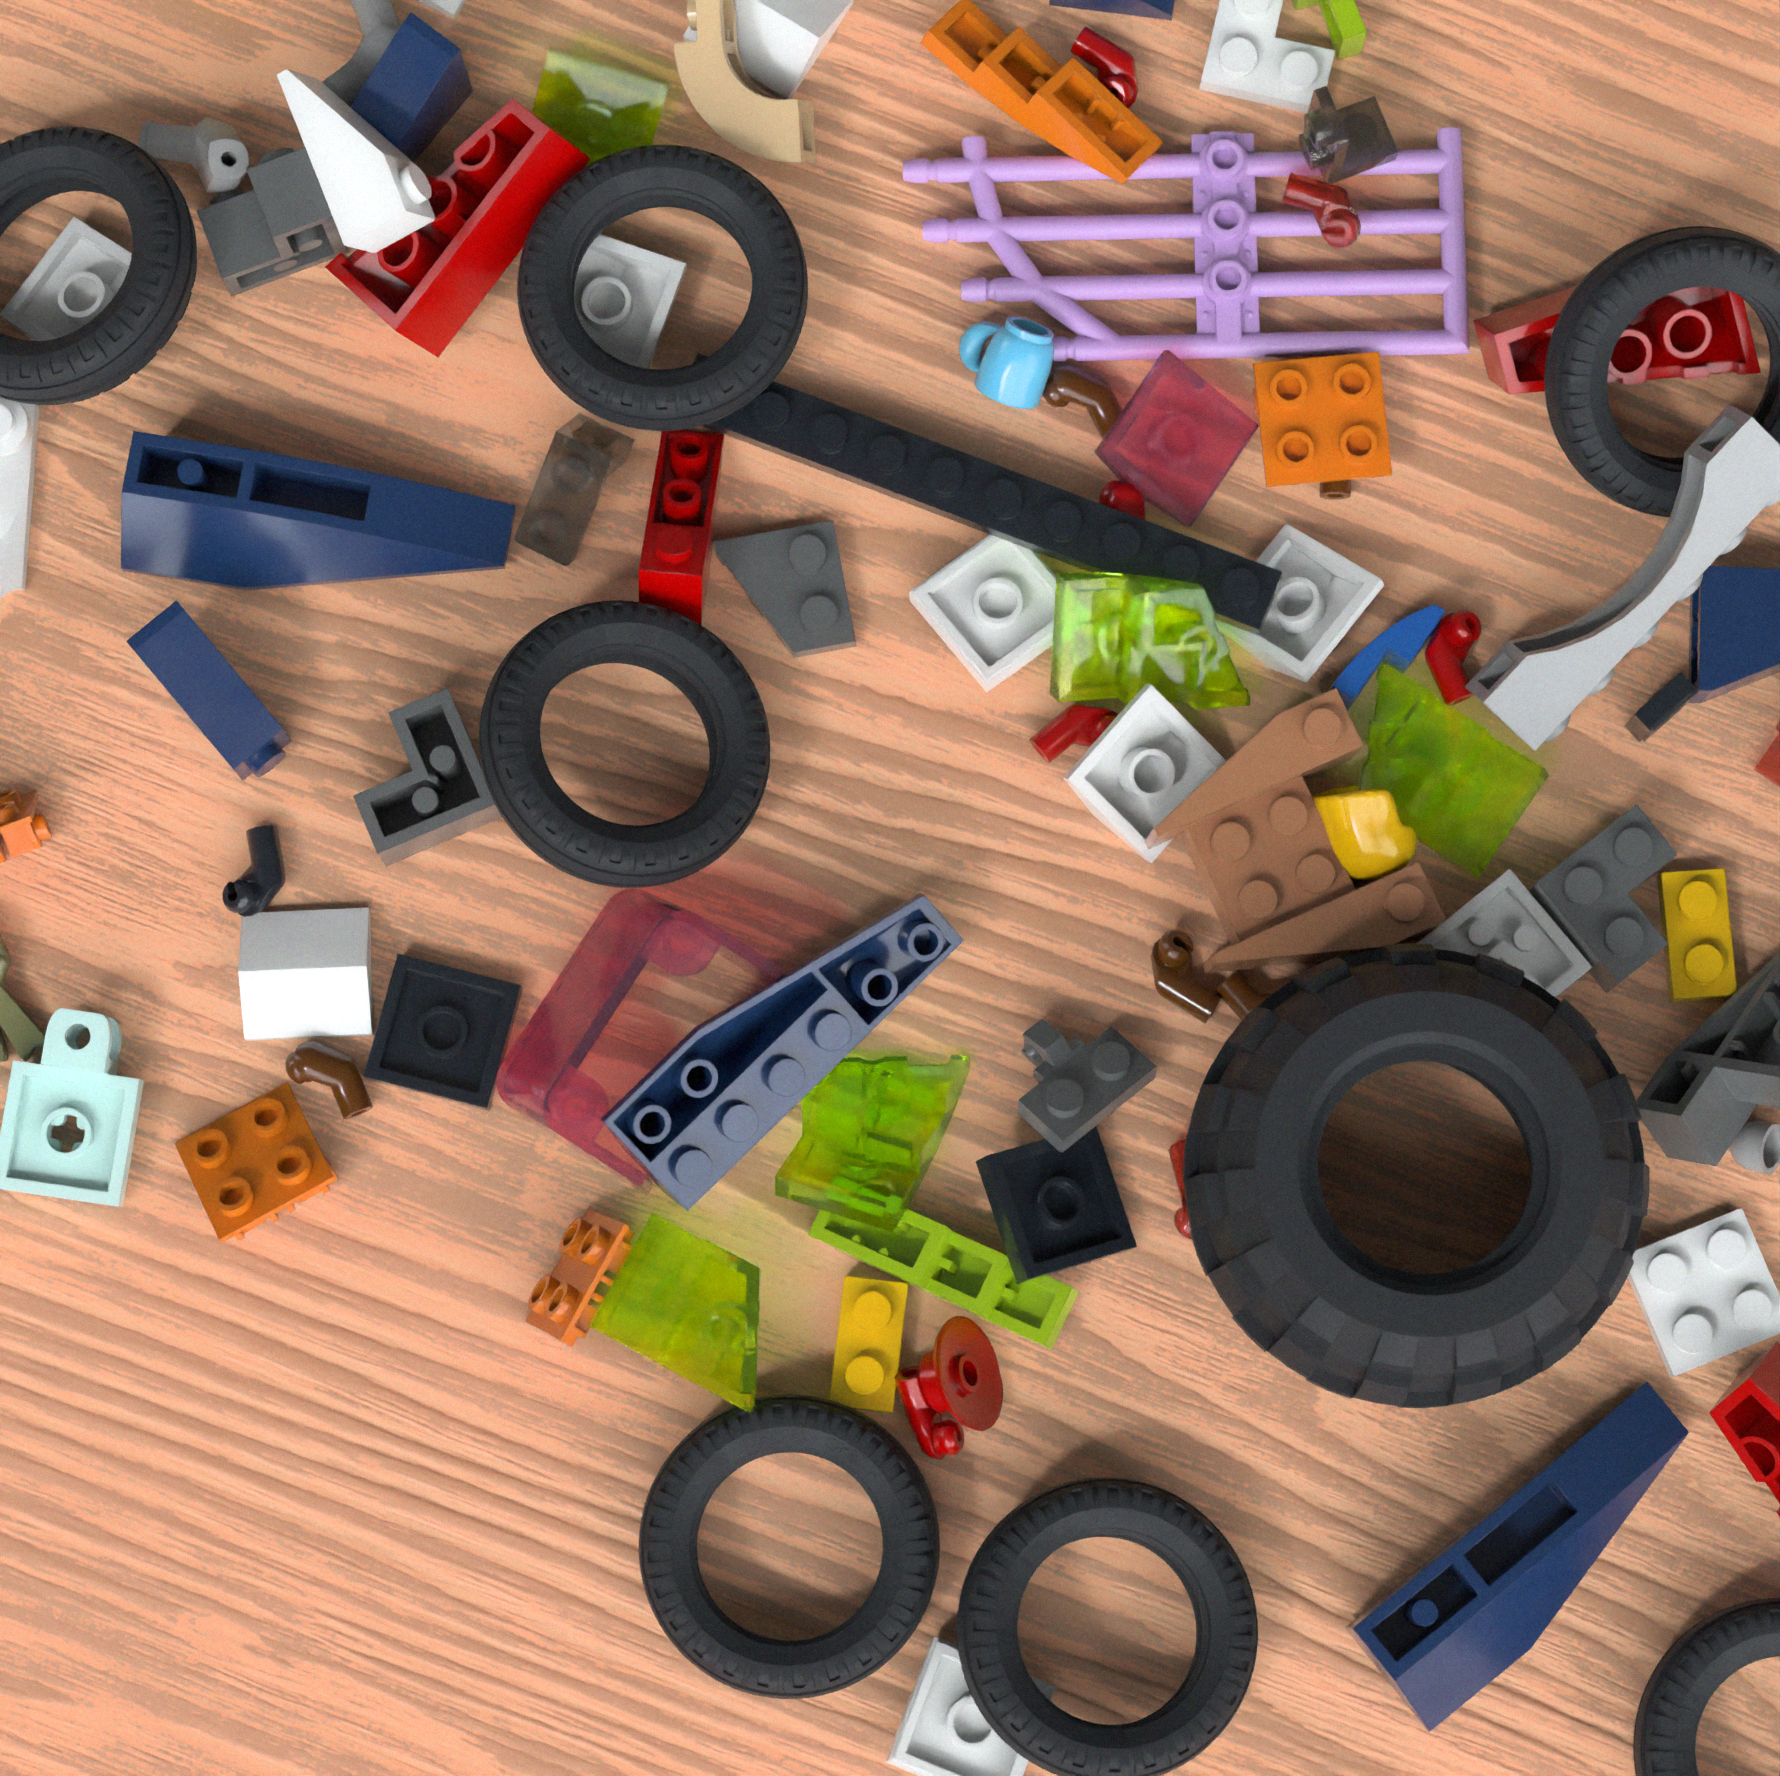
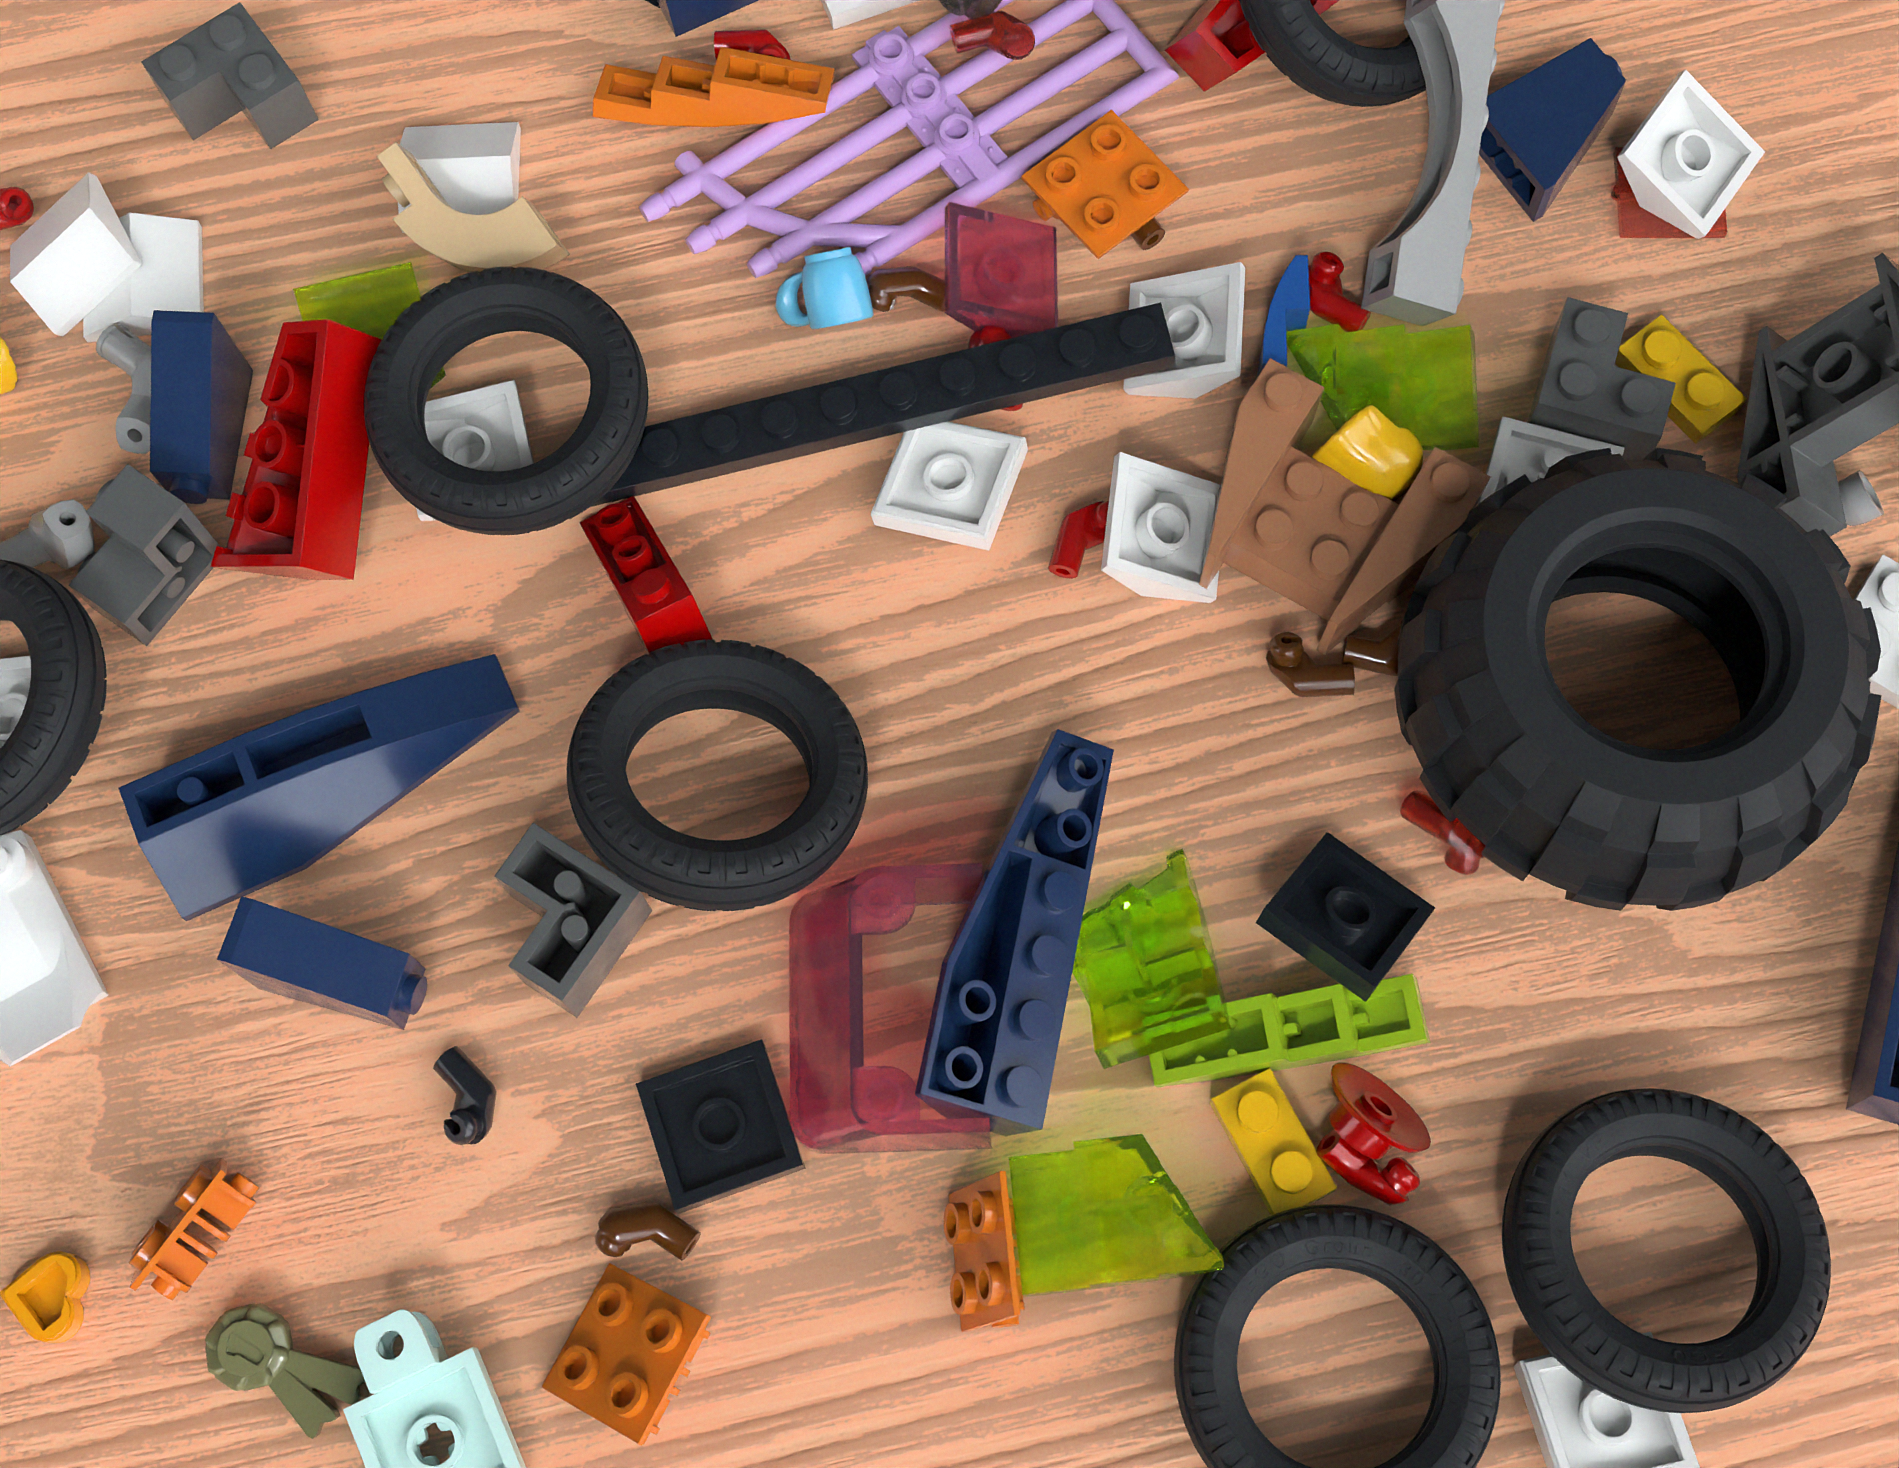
camera: 30 degrees left, 10 degrees down
(306, 974) = (566, 1157): white slope -> none
(365, 179) = (199, 462): white slope -> none
(570, 487) = (533, 613): clear smoke bracket -> none
(796, 584) = (772, 570): dark grey wing -> none
(1079, 1081) = (1290, 805): dark grey hinge -> none
(1135, 631) = (1075, 421): clear neon green slope -> none
(1661, 708) = (1521, 229): black tile -> none

